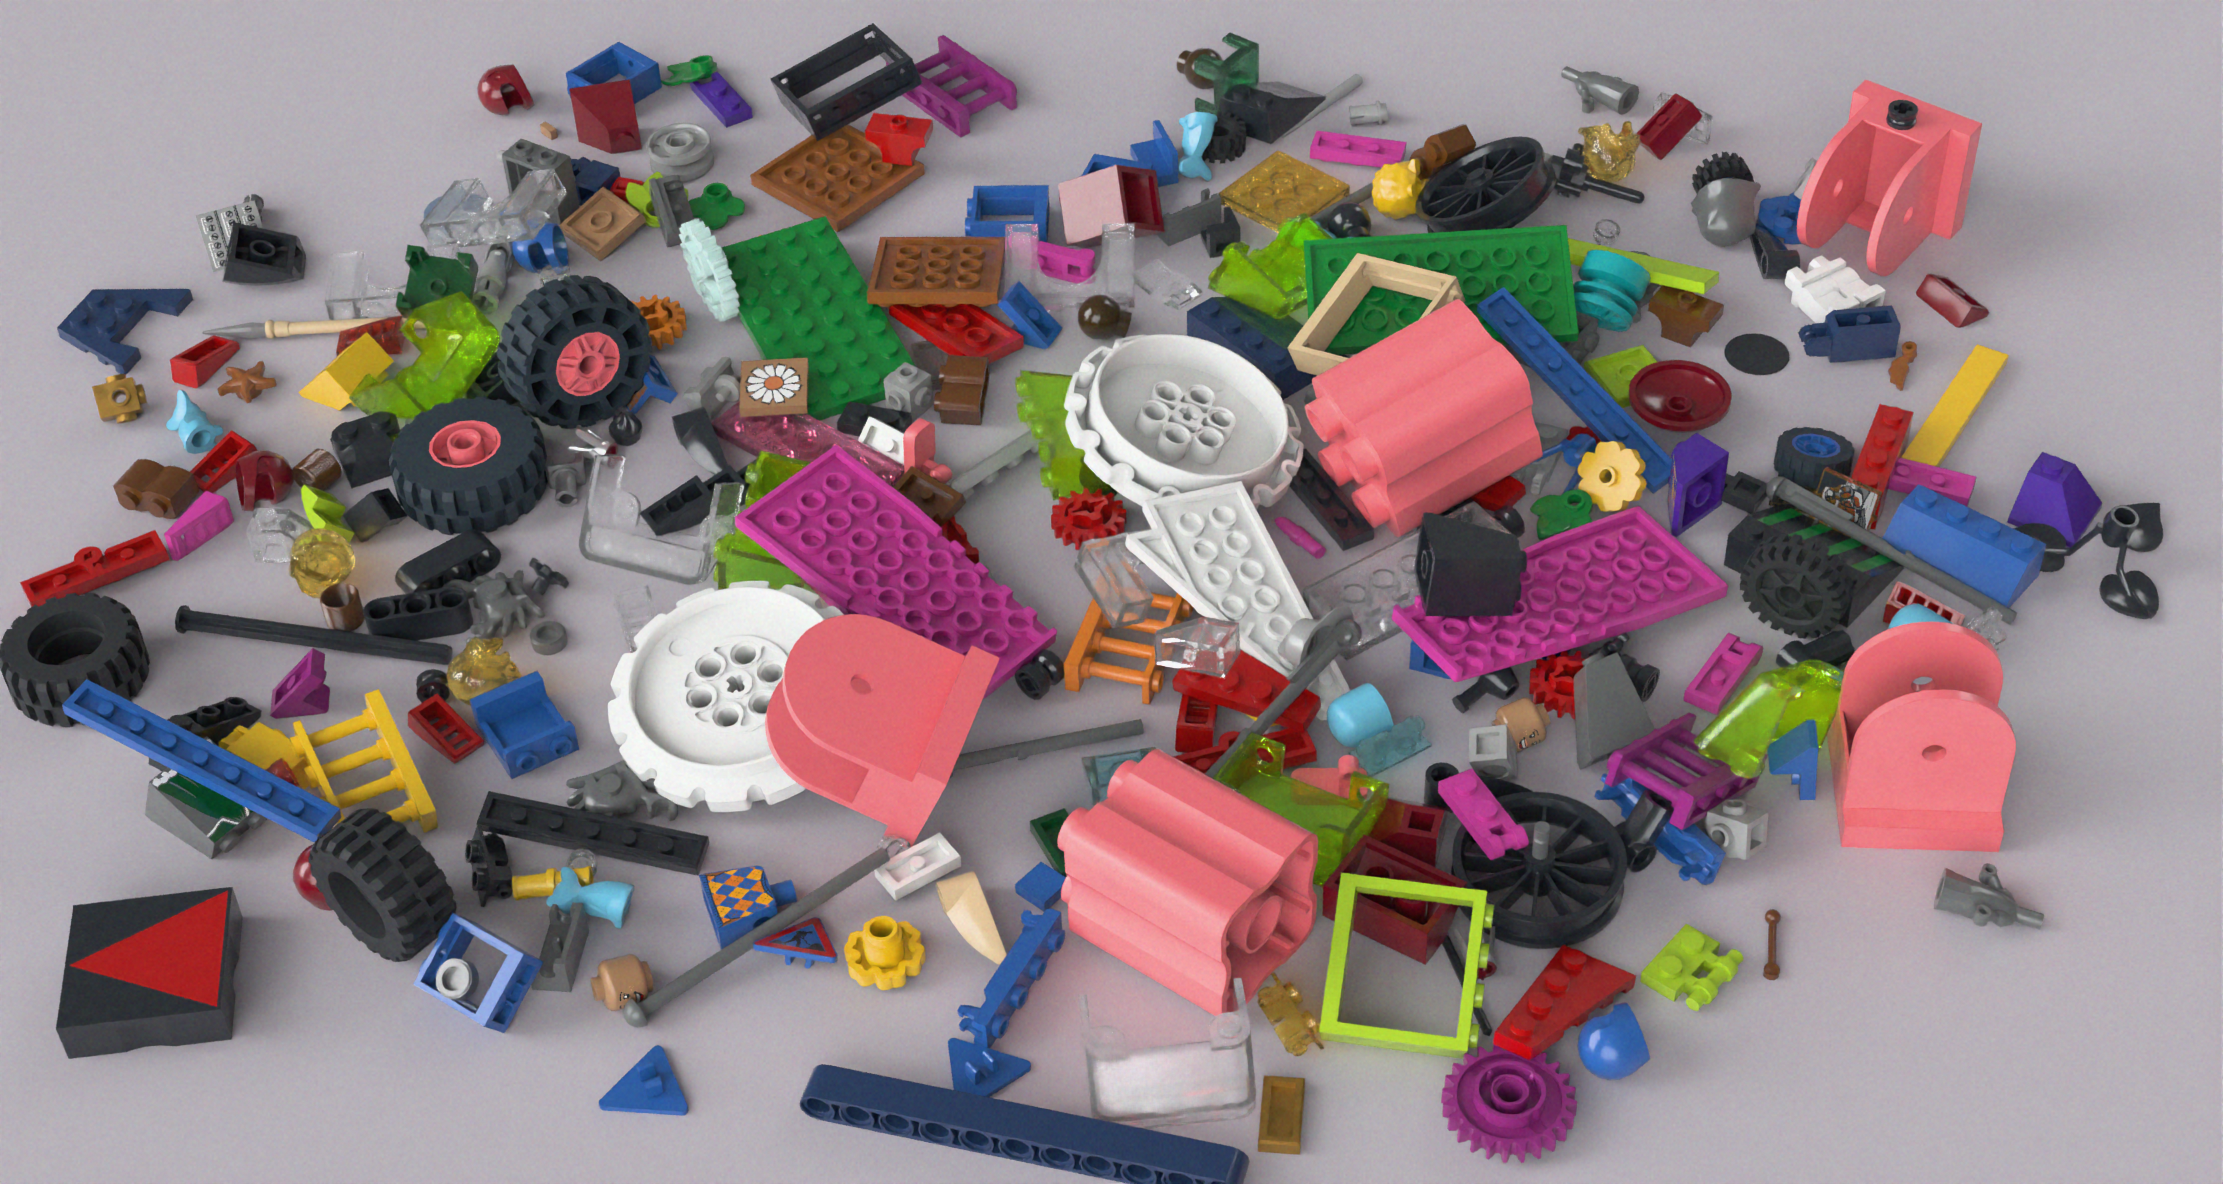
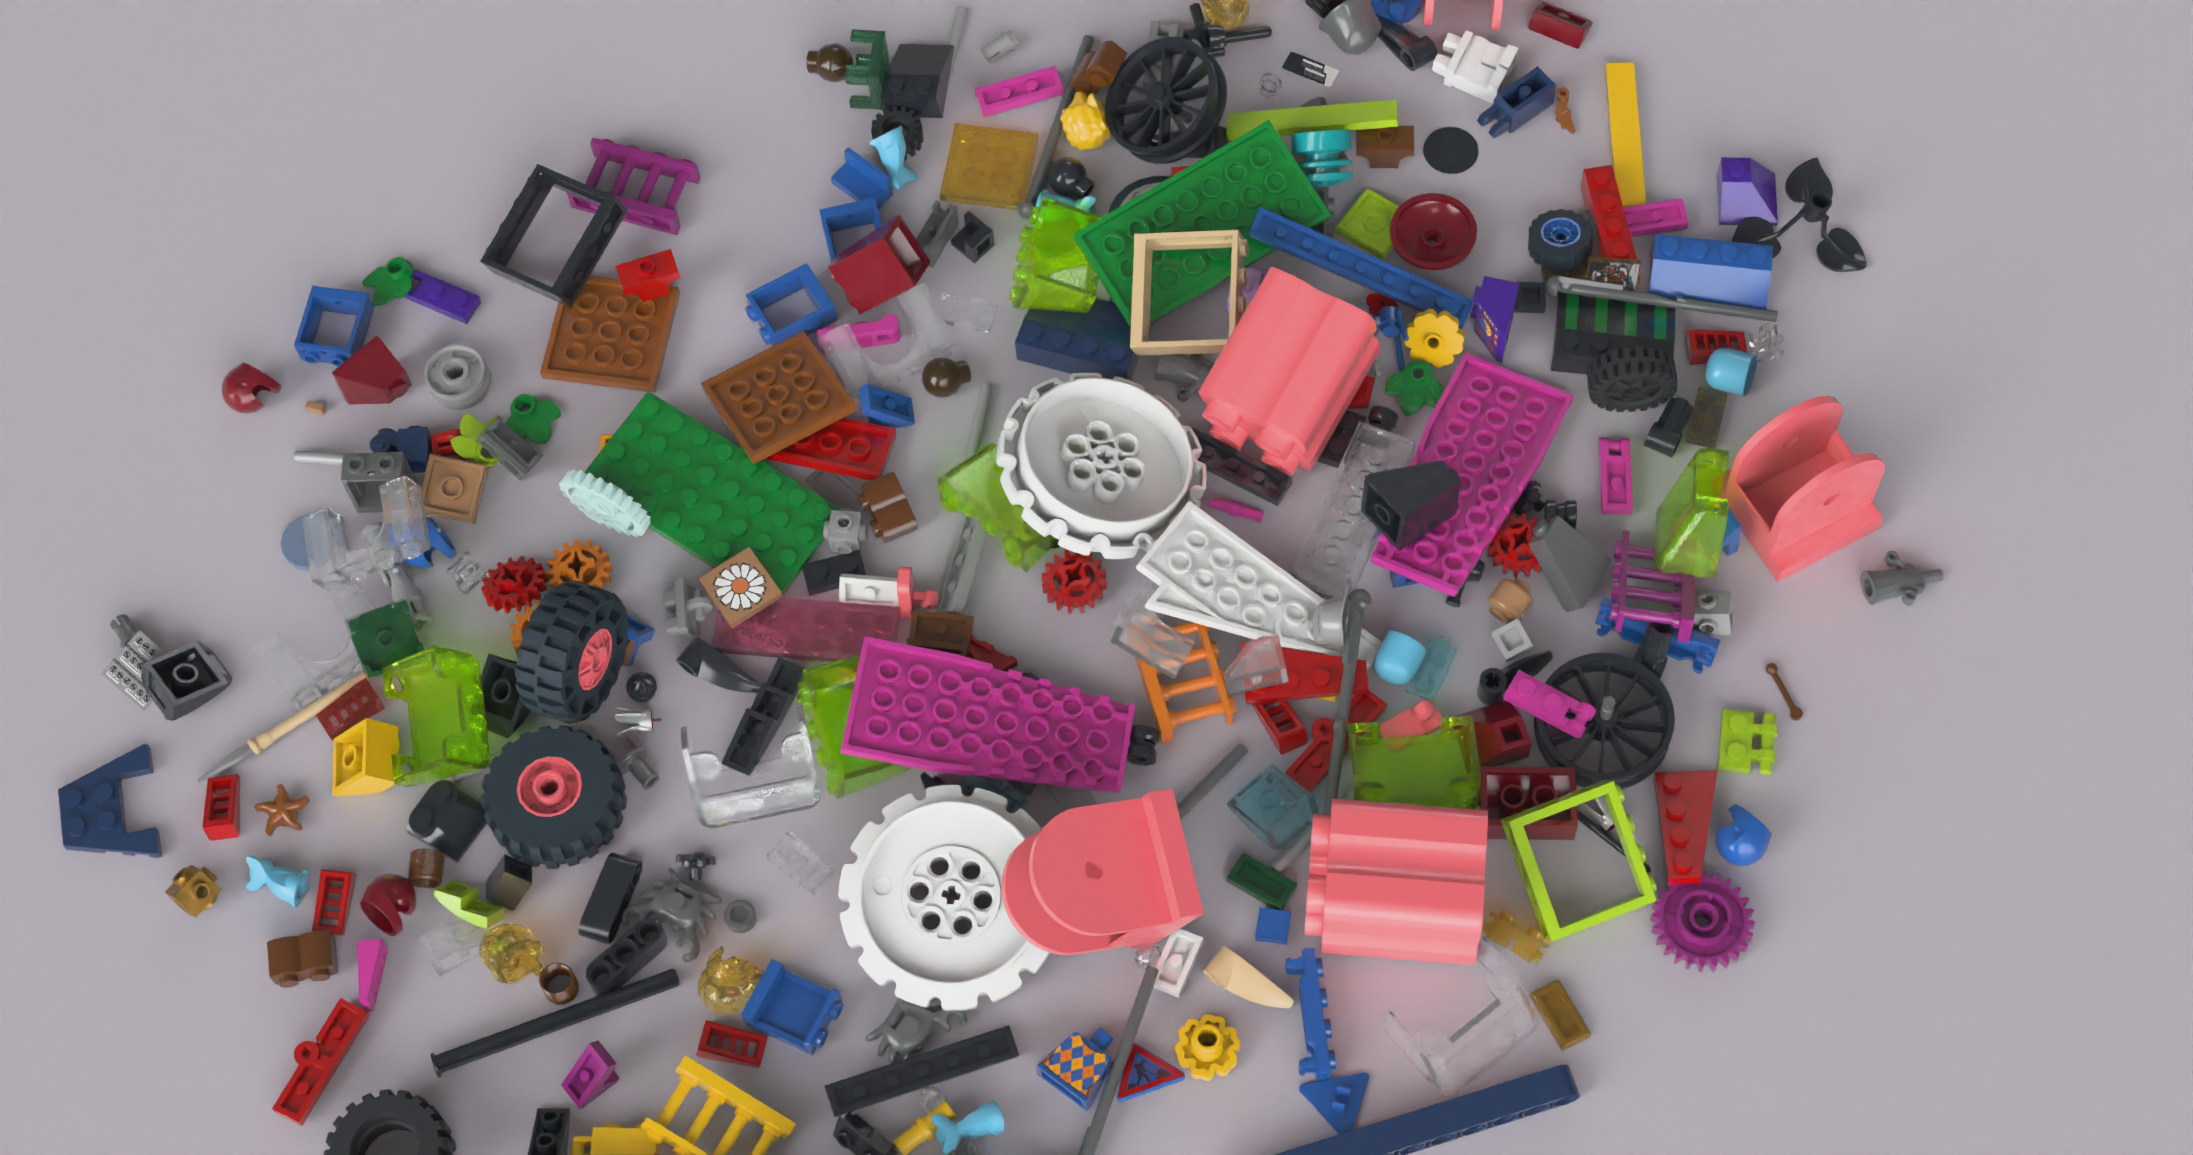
camera: 30 degrees left, 20 degrees up
(431, 678) = (692, 1013): black bush -> none
(1661, 242) = (1310, 69): none -> sticker

